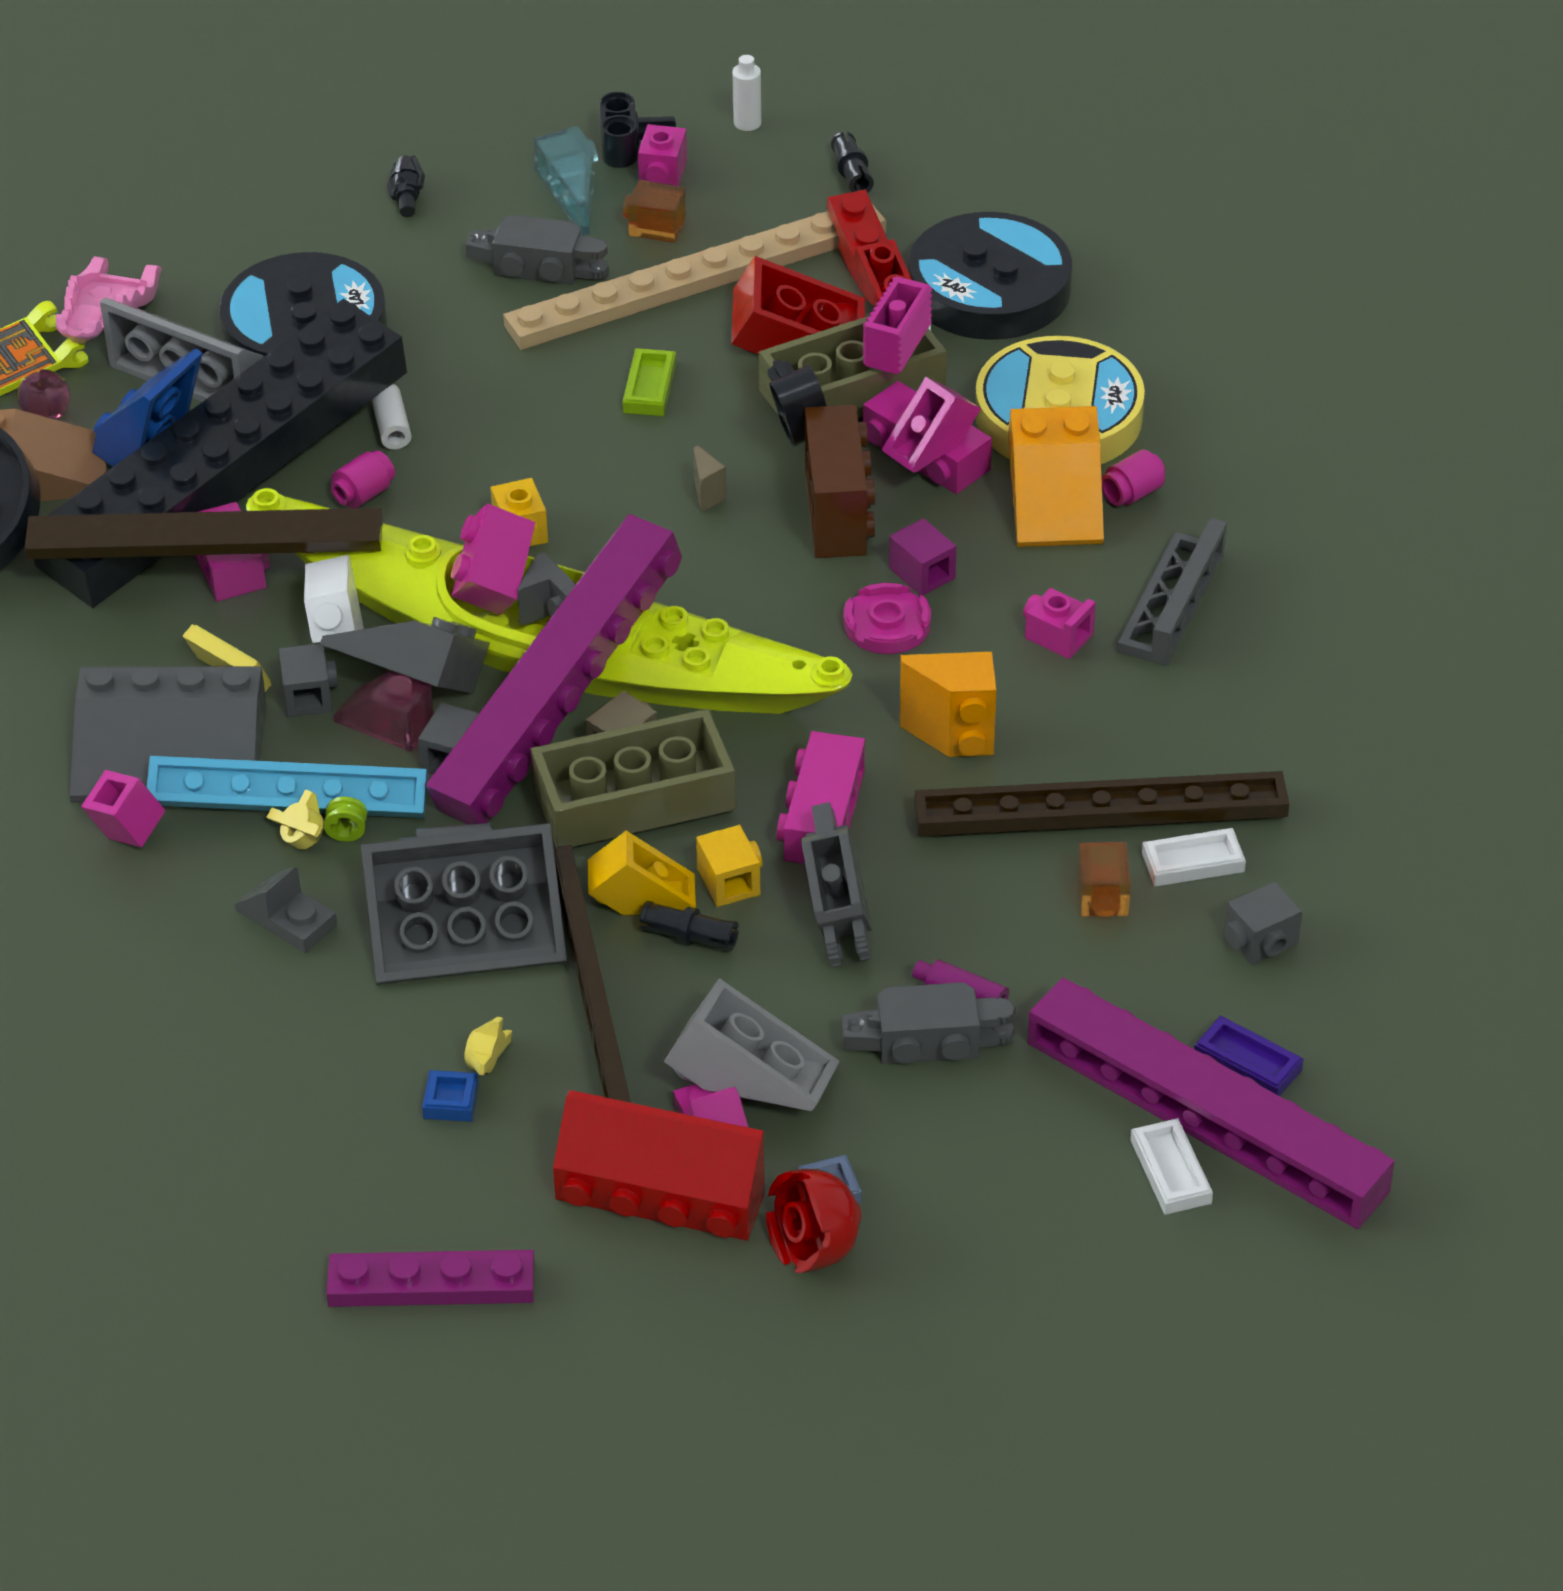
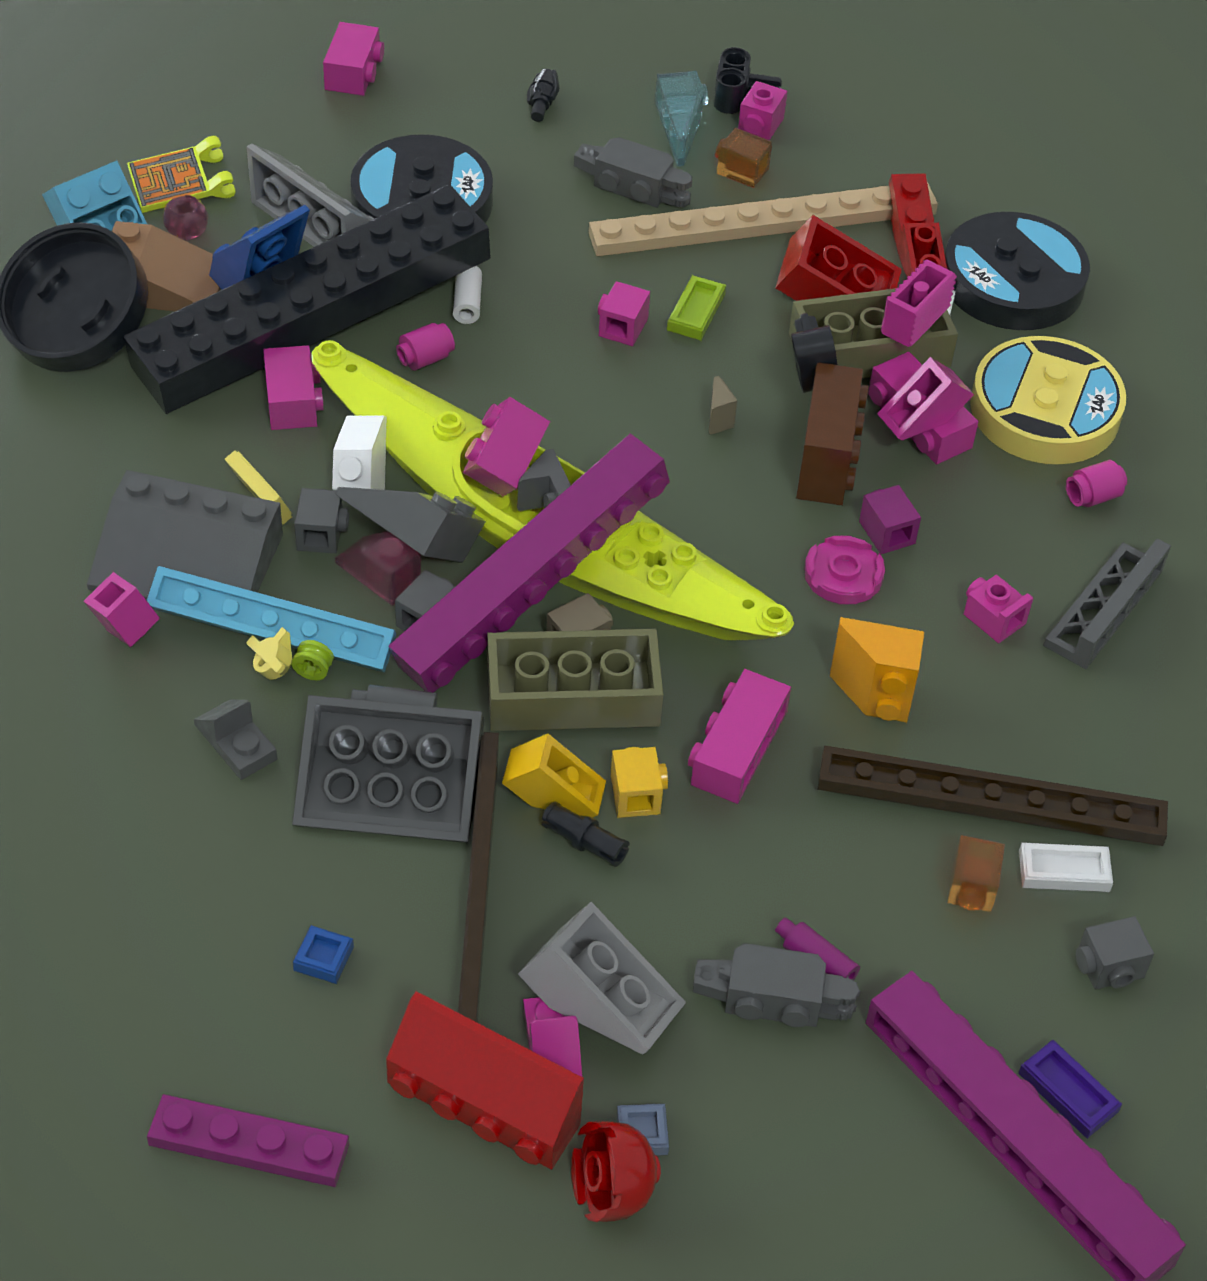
camera: 10 degrees right, 5 degrees up
(82, 311) = (259, 130): bright pink animal -> none
(176, 186) = (352, 58): none -> dark pink brick
(204, 533) = (268, 371): dark brown tile -> none
(486, 1045) = (367, 914): light yellow piece -> none
(523, 500) = (550, 399): yellow brick -> none
(571, 402) = (623, 313): none -> dark pink brick
(746, 94) = (847, 70): white cylinder -> none
(836, 885) = (726, 827): dark grey hinge -> none
(851, 162) = (922, 147): black pin -> none
(1056, 476) = (1027, 469): light orange slope -> none
(1171, 1166) = (969, 1189): white tile -> none

